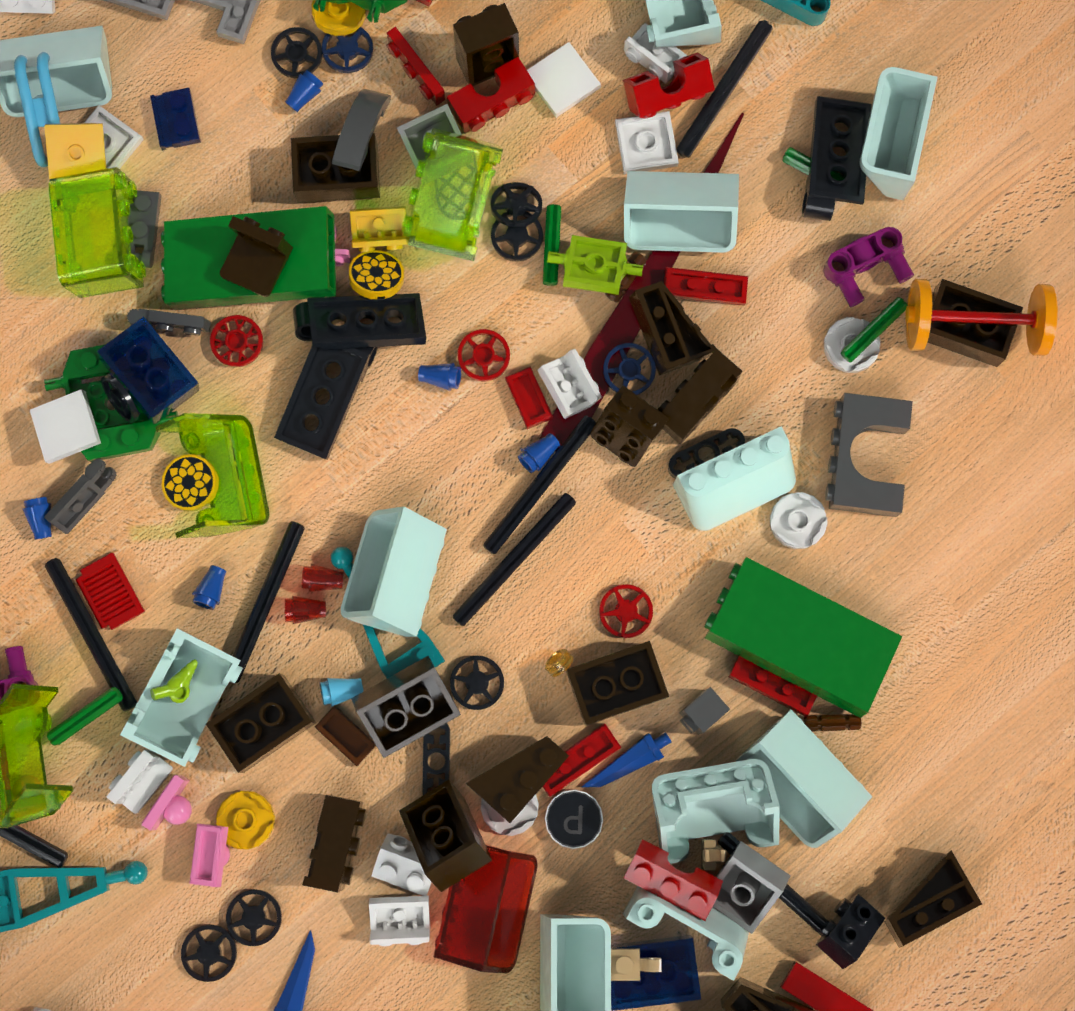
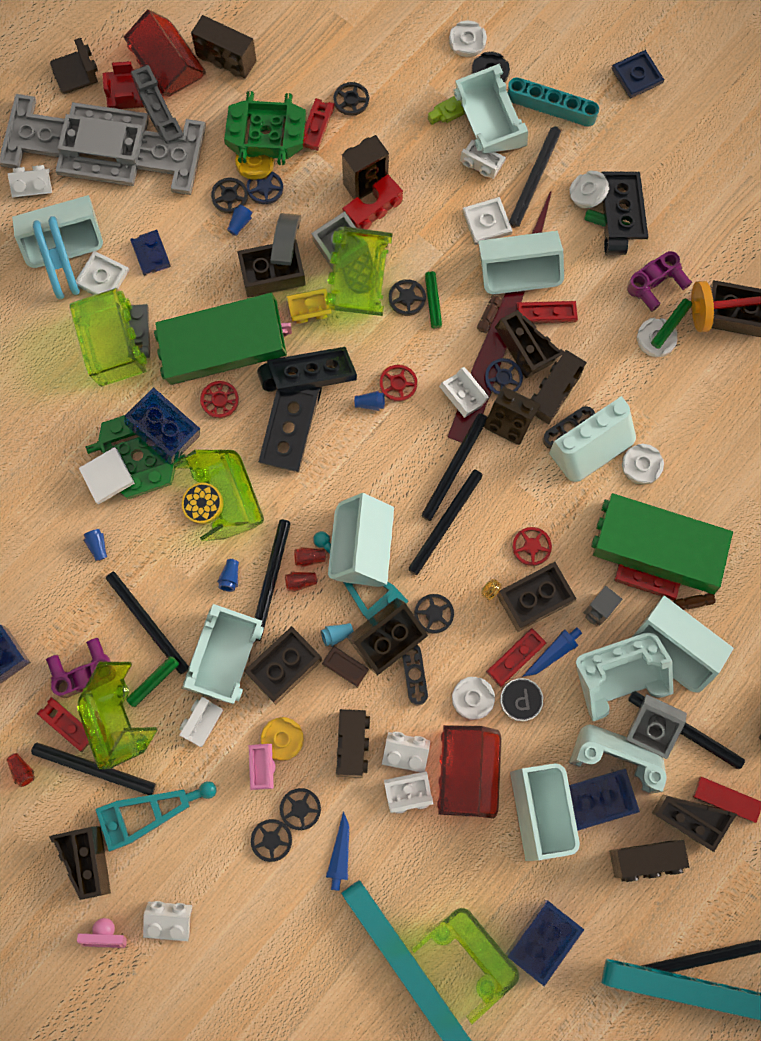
camera: 10 degrees left, 5 degrees down
(74, 148) = (83, 280): yellow plate -> none
(81, 496) = (125, 524): dark grey hinge -> none
(109, 592) = (155, 591): red window -> none
(120, 398) = (144, 448): black wheel -> none
(167, 321) = (185, 391): dark grey hinge -> none
(169, 805) = (225, 736): bright pink tile -> none
(178, 686) = (218, 647): lime animal -> none
(255, 256) = (227, 334): dark brown bracket -> none
(376, 274) = (312, 337): yellow tile -> none
(415, 67) = (315, 192): red plate -> none
(445, 836) = (433, 723): dark brown brick -> none
(516, 204) = (403, 275): black wheel -> none
(518, 779) = (478, 674): dark brown wedge -> none
(528, 398) = (435, 407): red tile -> none
(537, 454) = (447, 447): blue cone -> none
(563, 79) = (421, 186): white tile -> none
(595, 264) = (467, 307): lime plate -> none
(627, 964) = (583, 794): tan plate -> none
(689, 891) = (618, 733): arch -> none
(690, 81) = (511, 174): red arch -> none
(711, 854) = (626, 708): tan plate -> none
(795, 119) = (589, 189): none -> white tile
(848, 487) = (674, 435): dark grey arch -> none
(849, 931) = (736, 746): black brick -> none
(897, 130) = (663, 184): light aqua windscreen -> none

